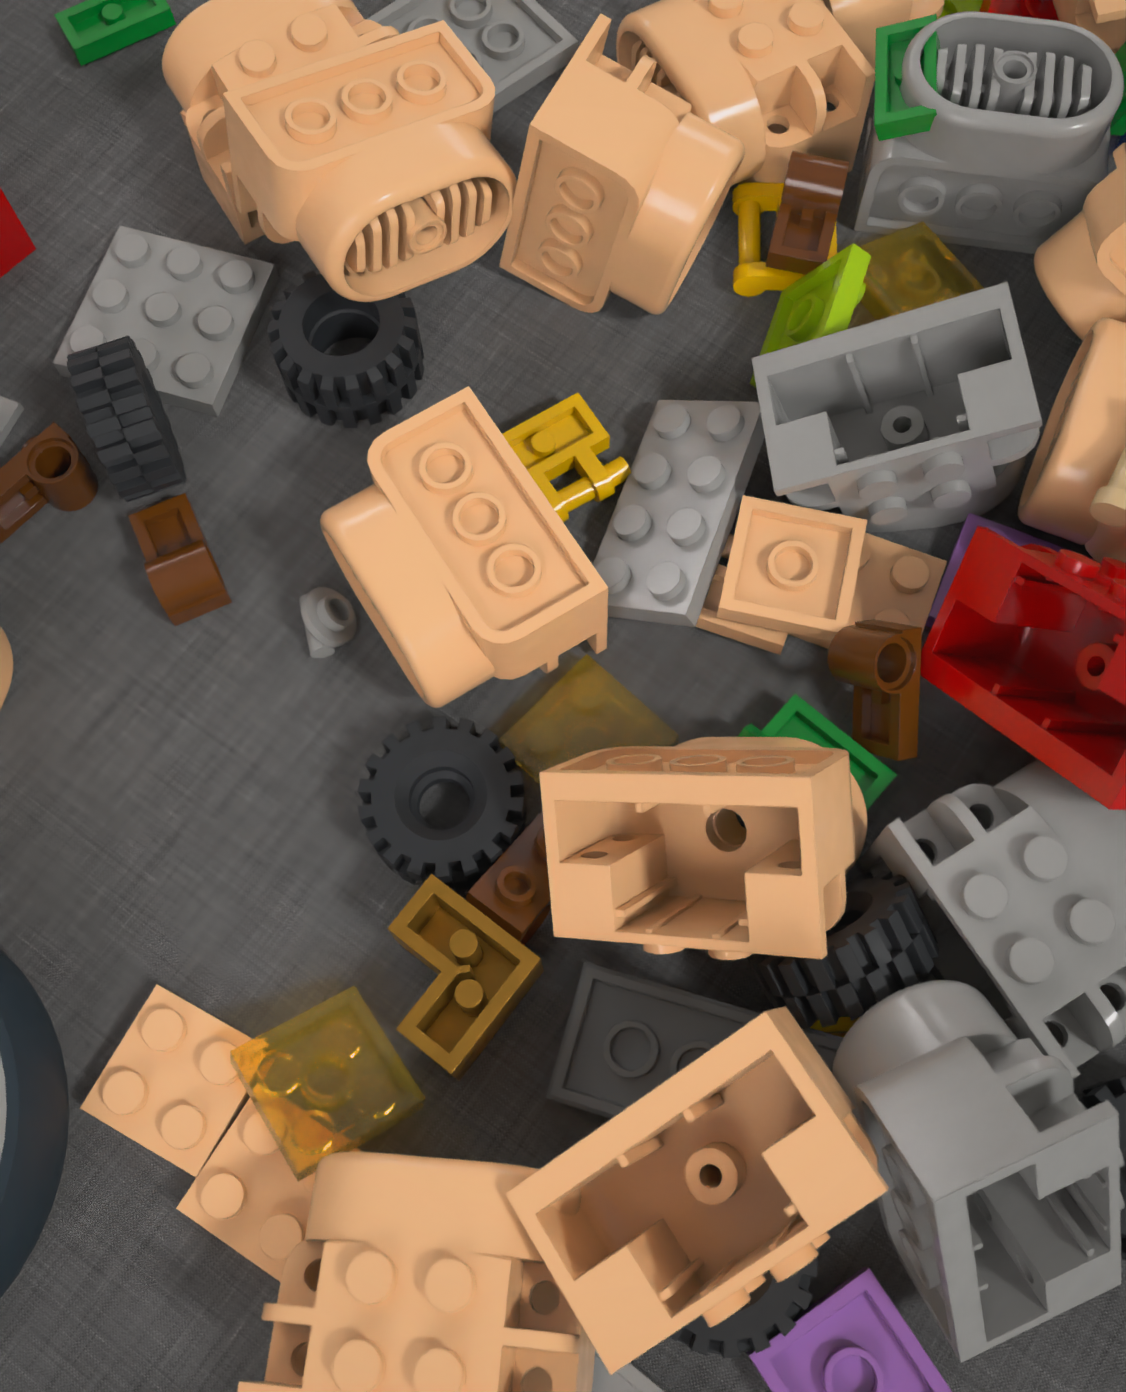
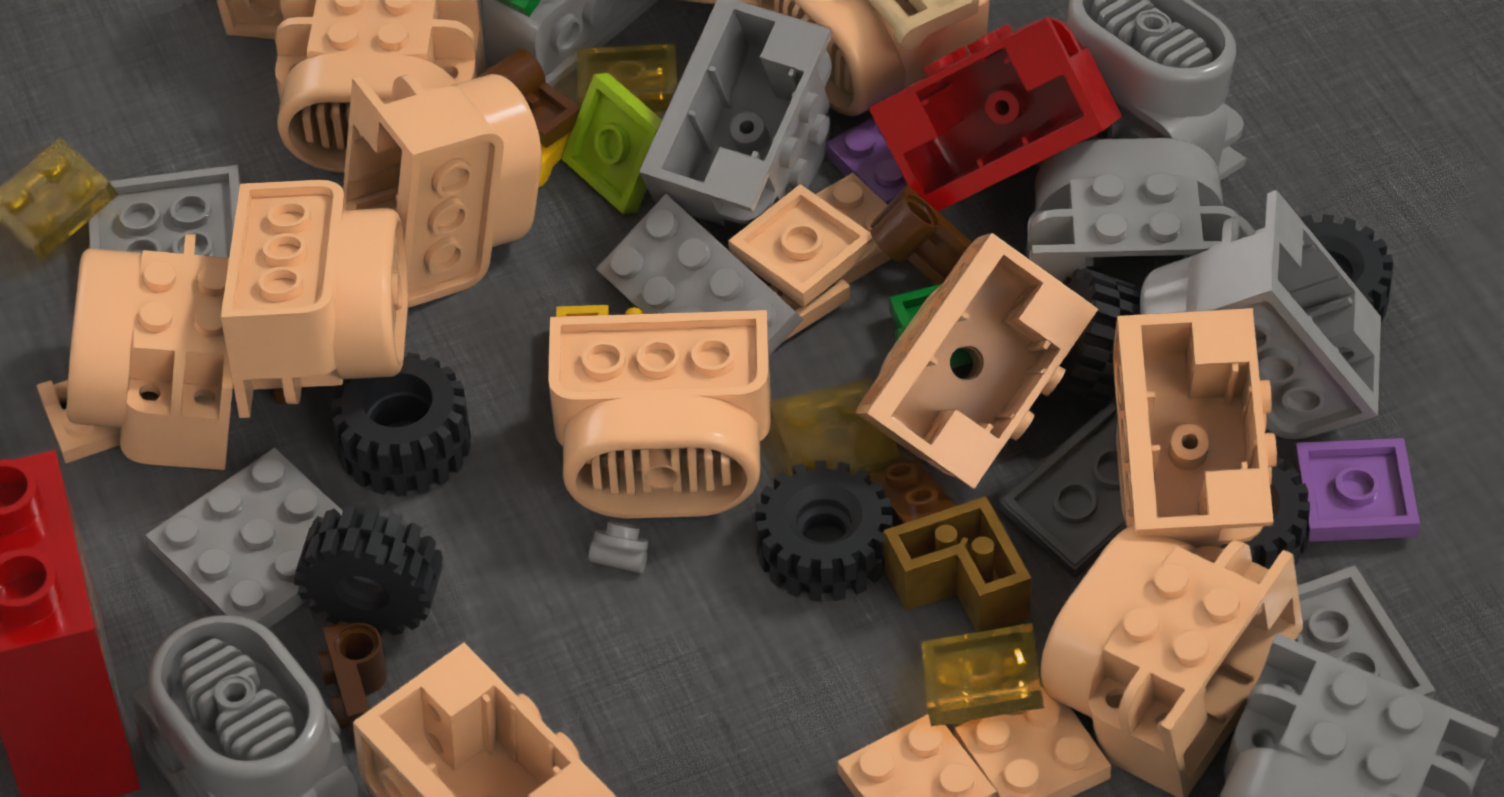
camera: 60 degrees left, 20 degrees down
(179, 560) = (508, 613): reddish brown plate -> none

